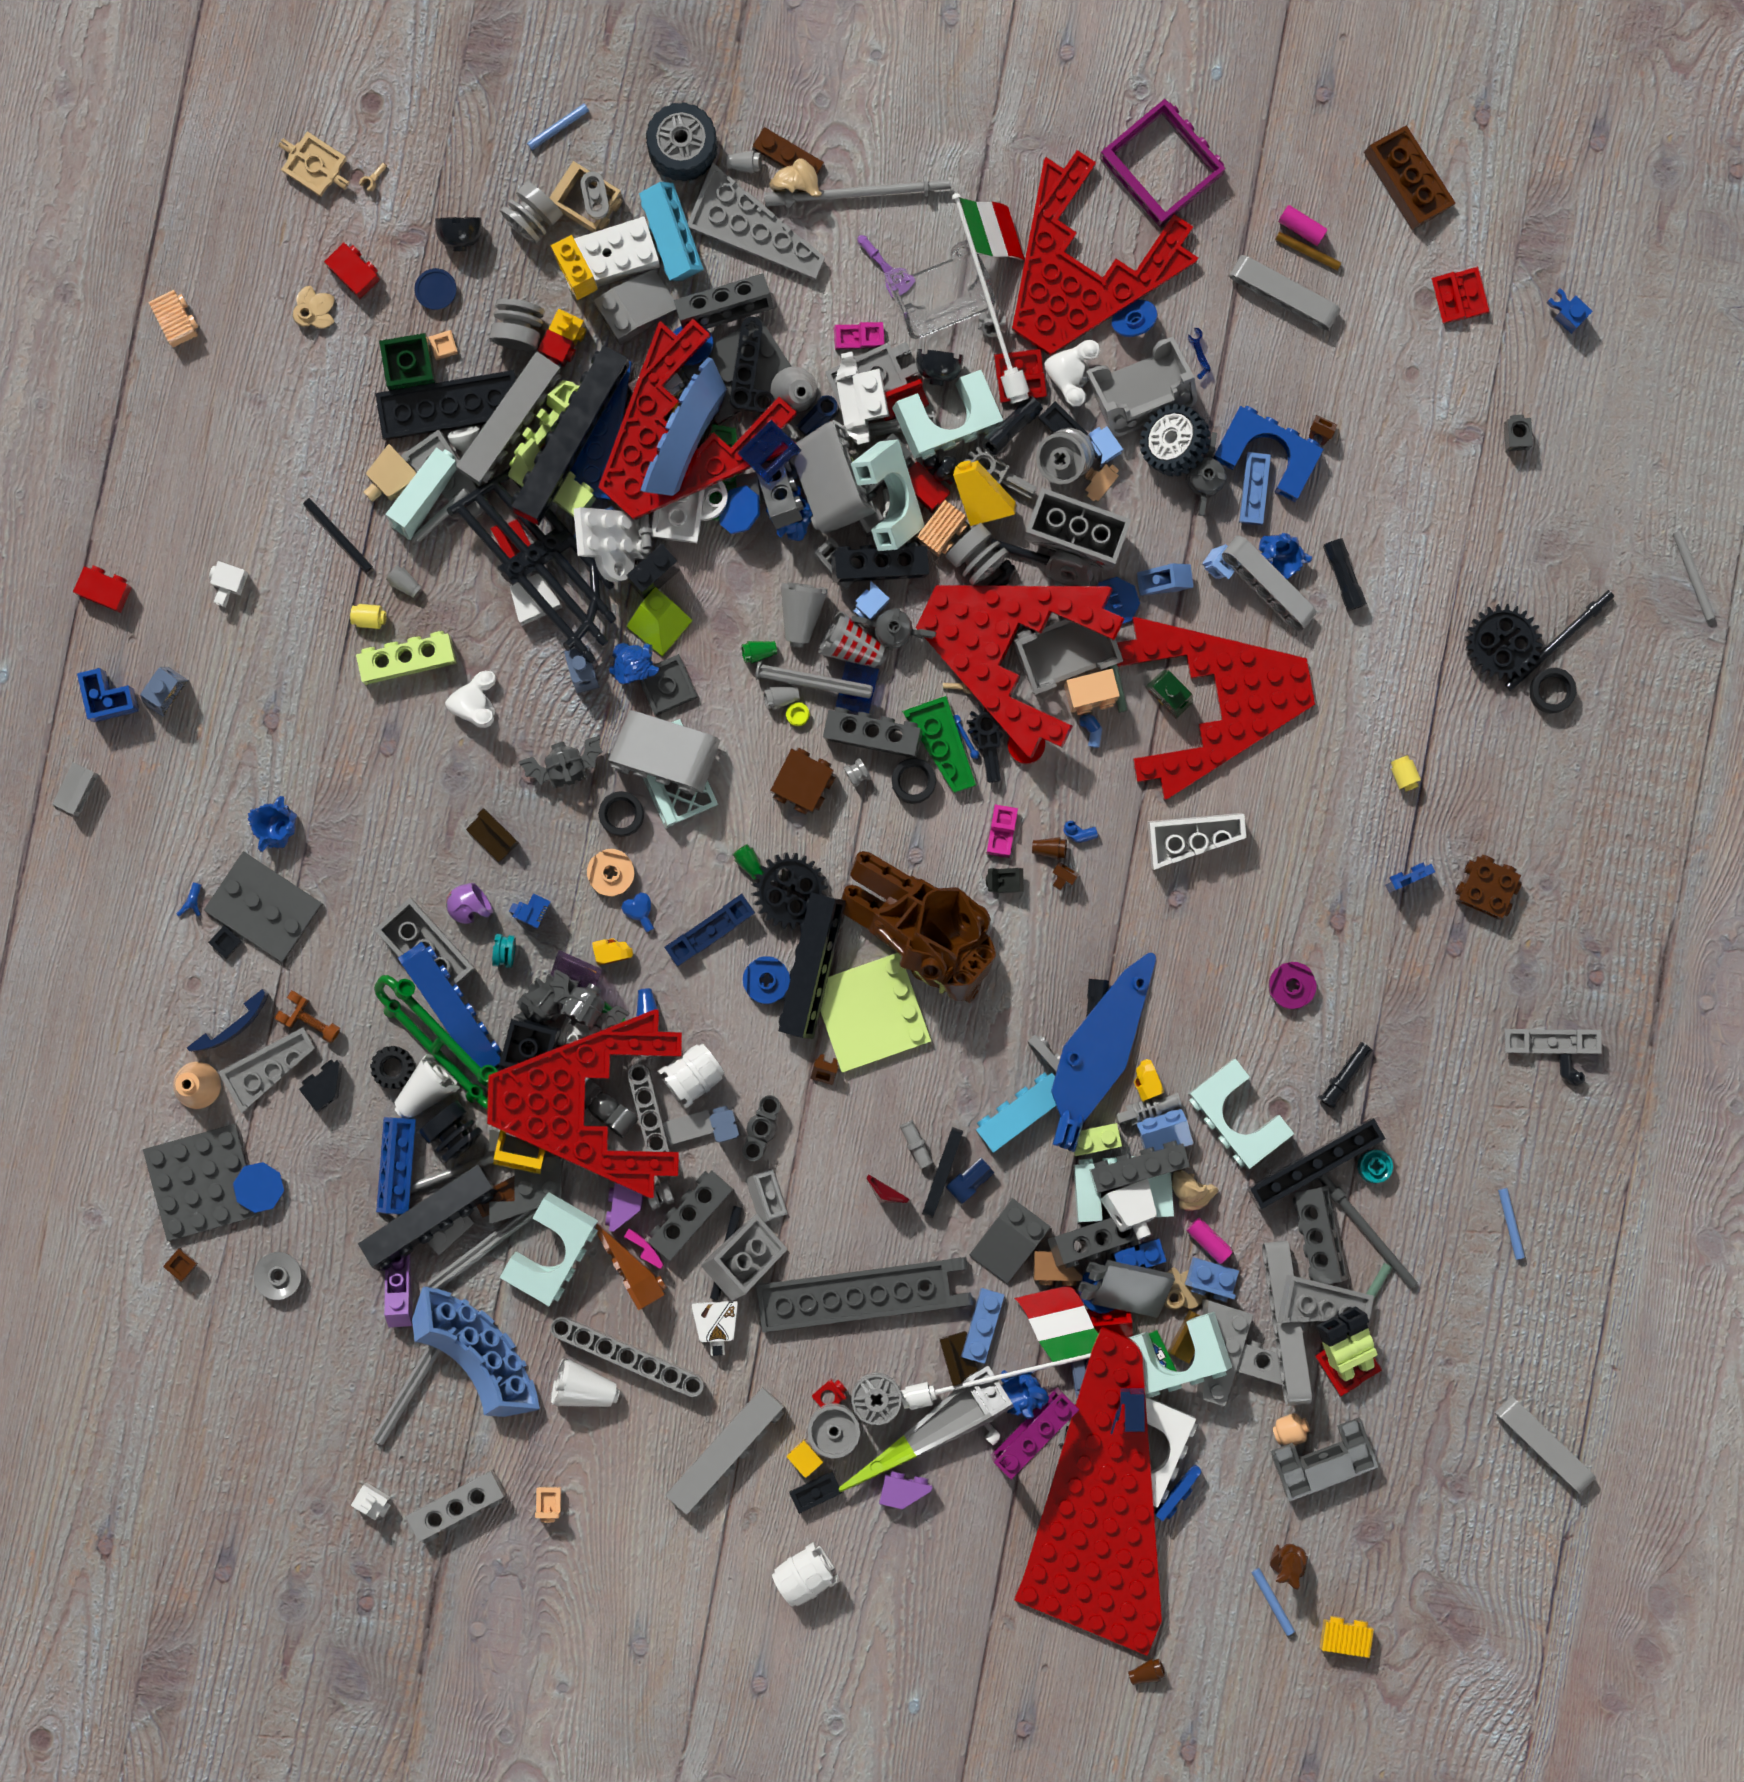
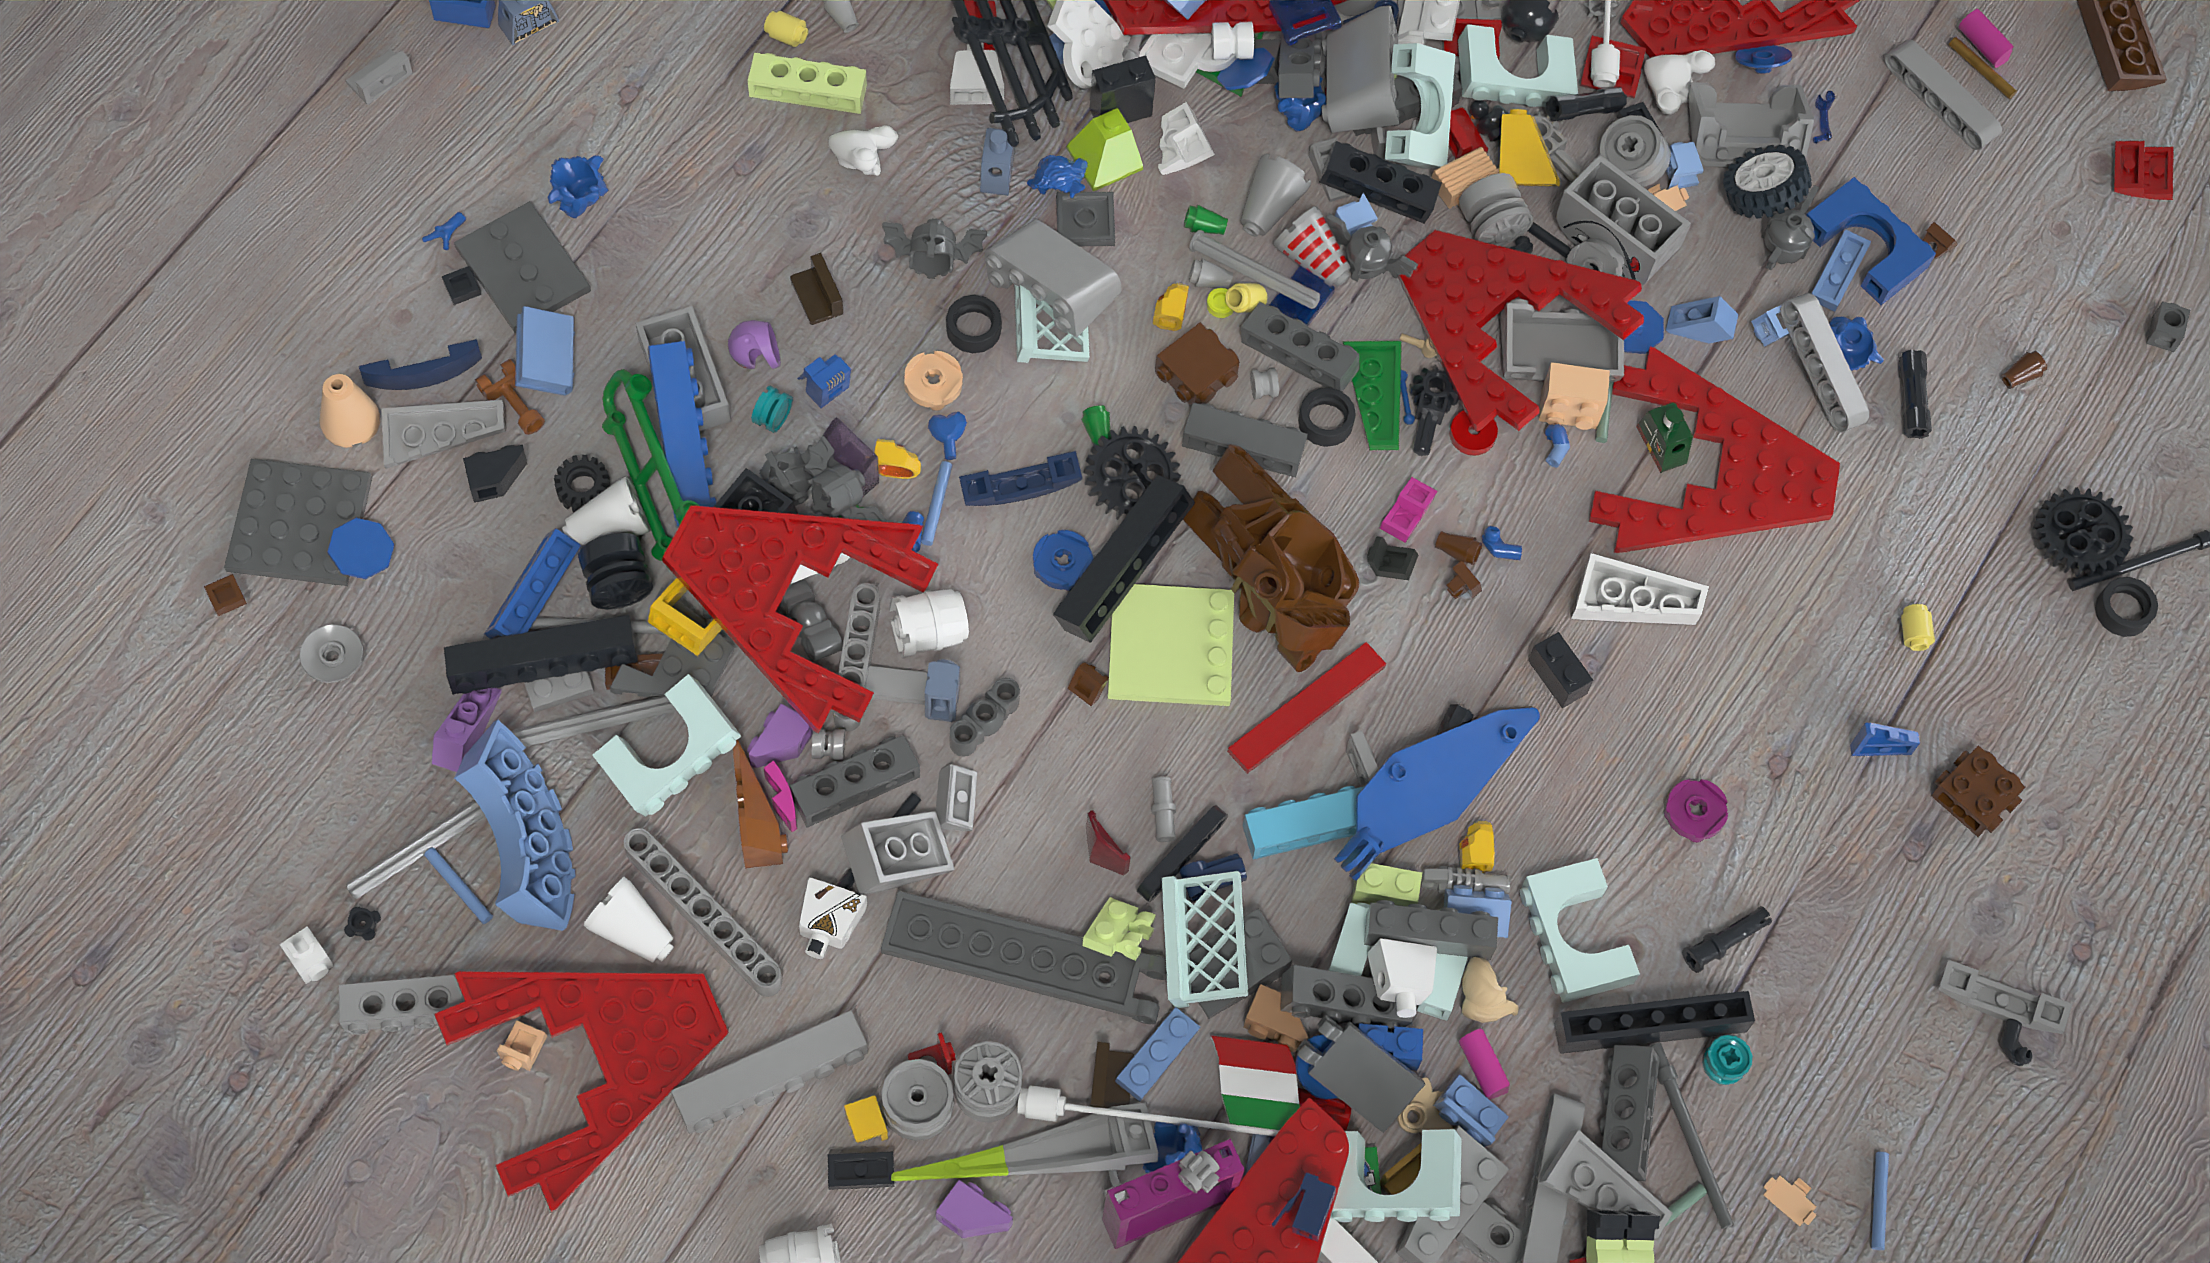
camera: 20 degrees right, 20 degrees down
(315, 974) = (544, 351): none -> medium blue piece
(390, 1458) = (358, 915): none -> black plate
(448, 1405) = (458, 885): none -> medium blue bar
(626, 1461) = (643, 1034): none -> red wing
(655, 971) = (936, 503): none -> medium blue bar
(713, 584) = (1182, 140): none -> white slope
(721, 495) = (1232, 40): none -> white wheel
(762, 736) = (1171, 307): none -> yellow rock
(816, 707) = (1245, 297): none -> light yellow brick
(861, 828) = (1268, 444): none -> dark grey brick
(914, 1250) = (1111, 926): none -> yellowish green plate
(968, 1248) = (1178, 945): none -> light aqua fence
(987, 1021) = (1306, 707): none -> red tile
(1051, 1430) = (1198, 1171): none -> light grey gear
(1158, 918) = (1560, 670): none -> black brick
(1421, 517) = (2027, 368): none -> reddish brown cone
(1451, 1247) = (1791, 1199): none -> light nougat piece

